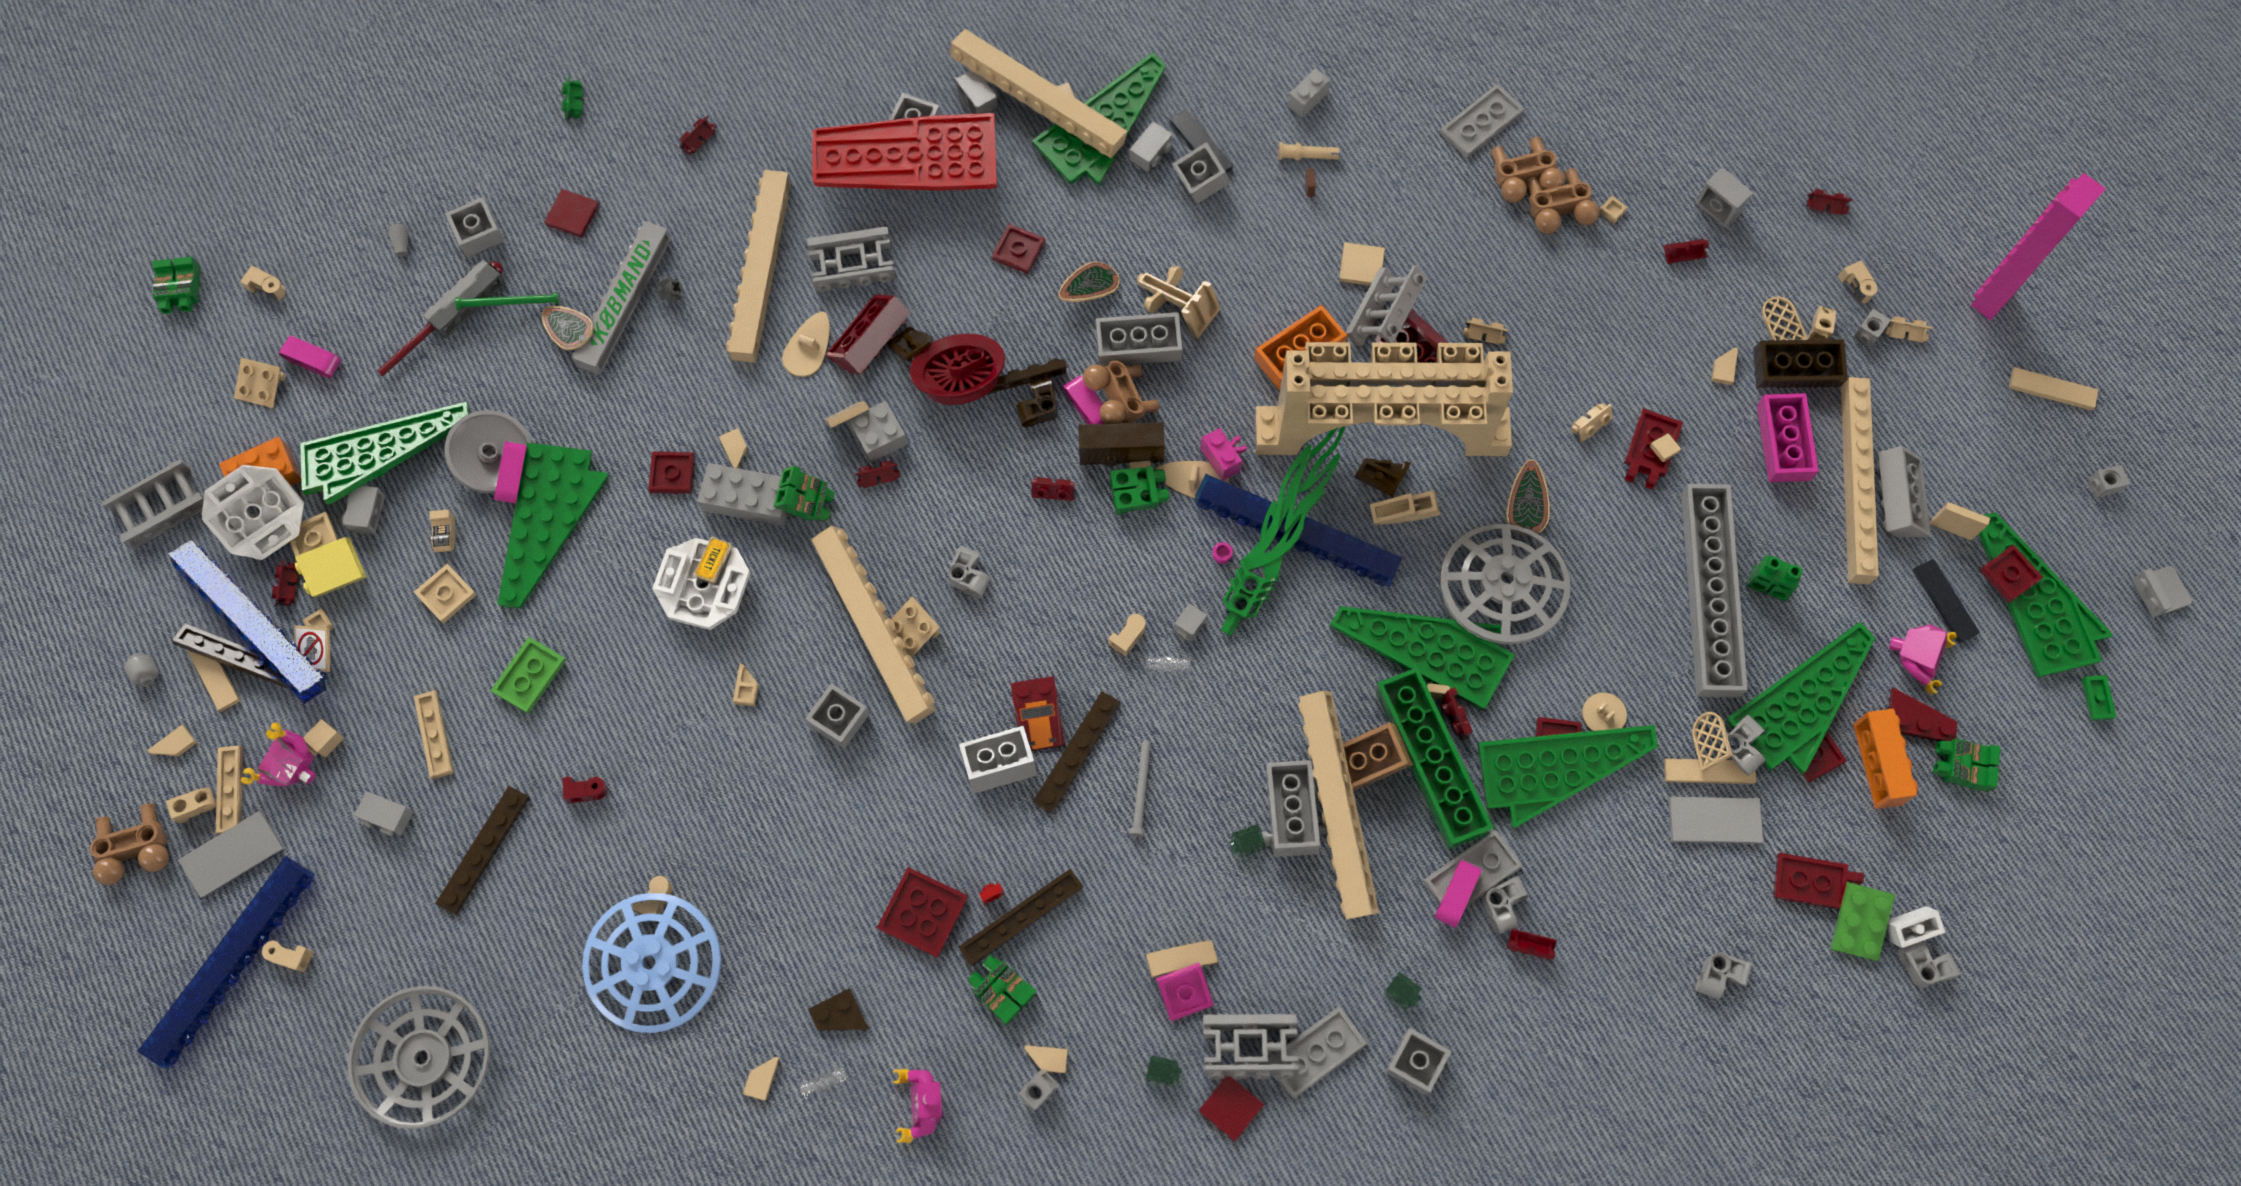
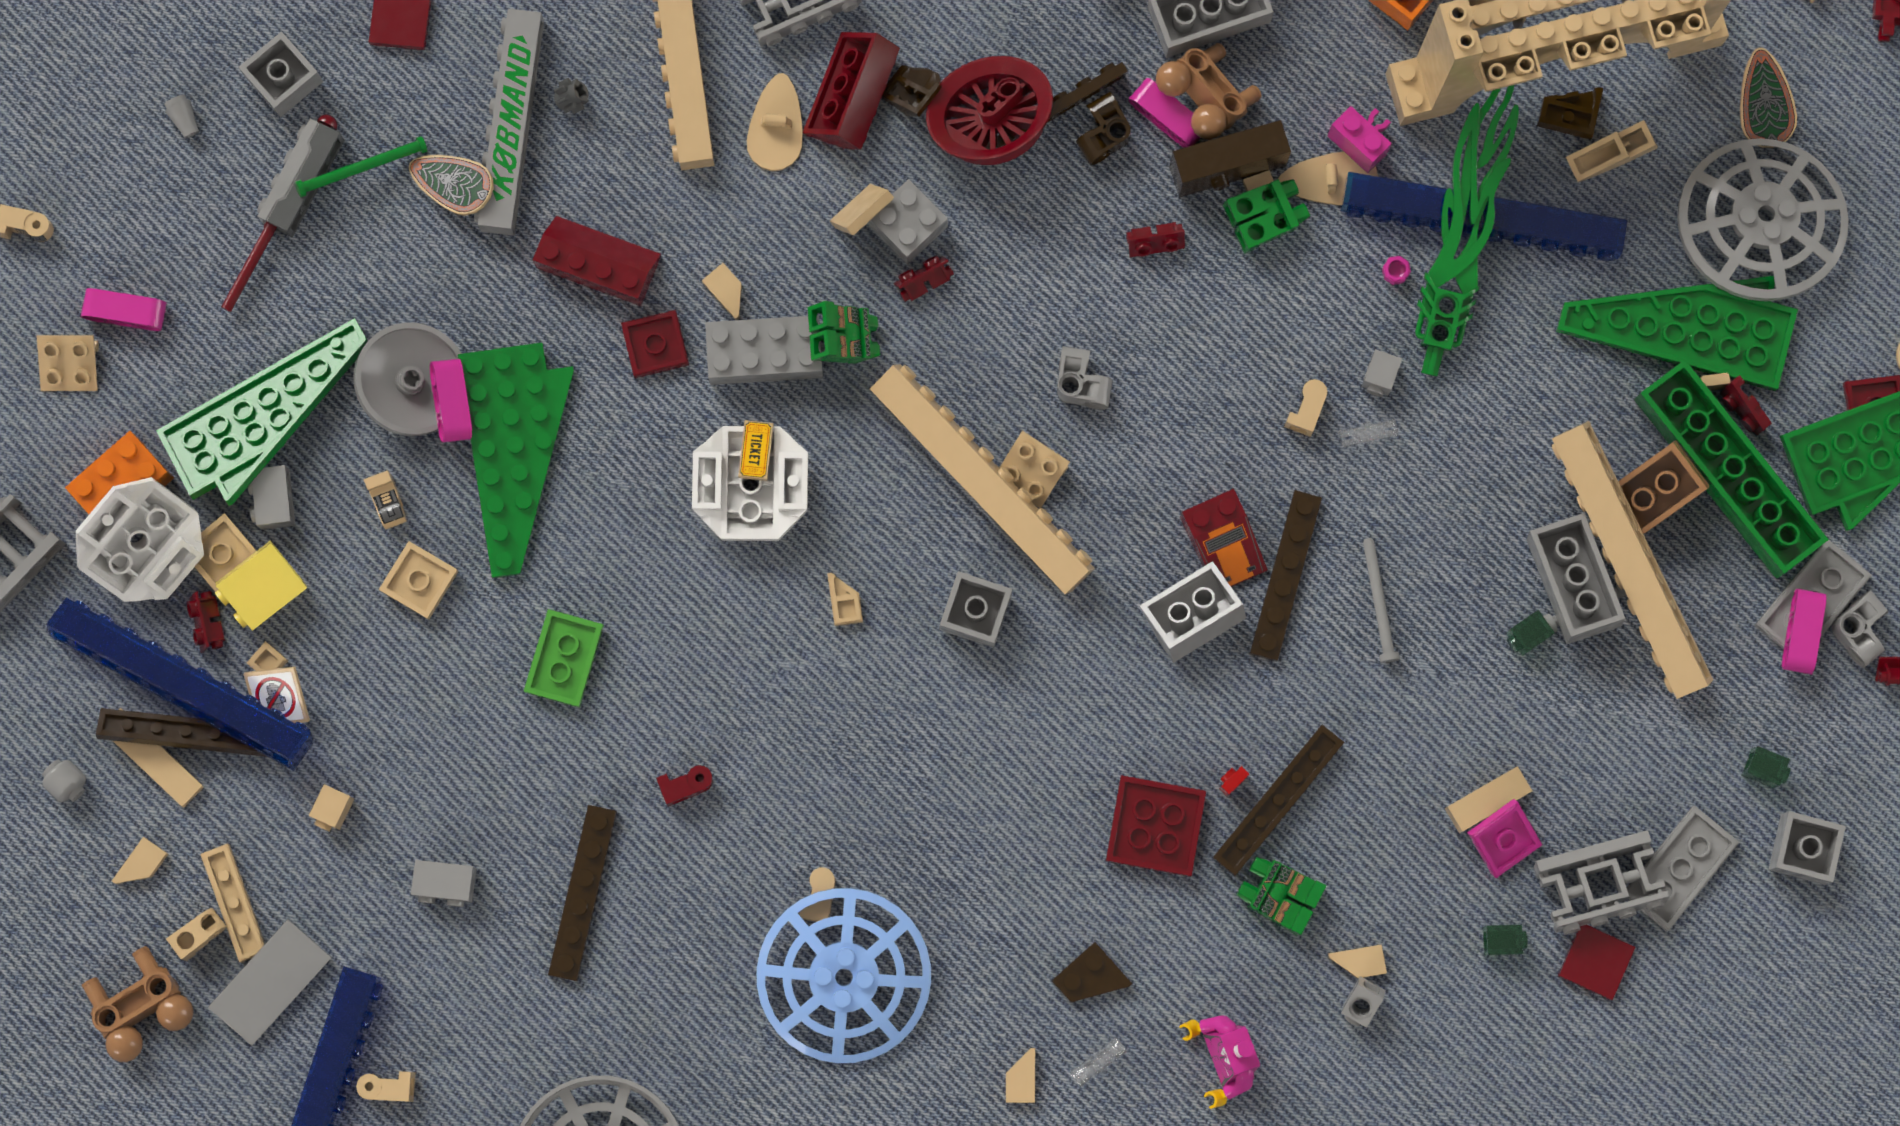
camera: 15 degrees left, 10 degrees up
(285, 761) = (296, 850): dark pink torso -> none
(433, 734) = (468, 765): tan tile -> none
(649, 404) = (596, 260): none -> dark red slope

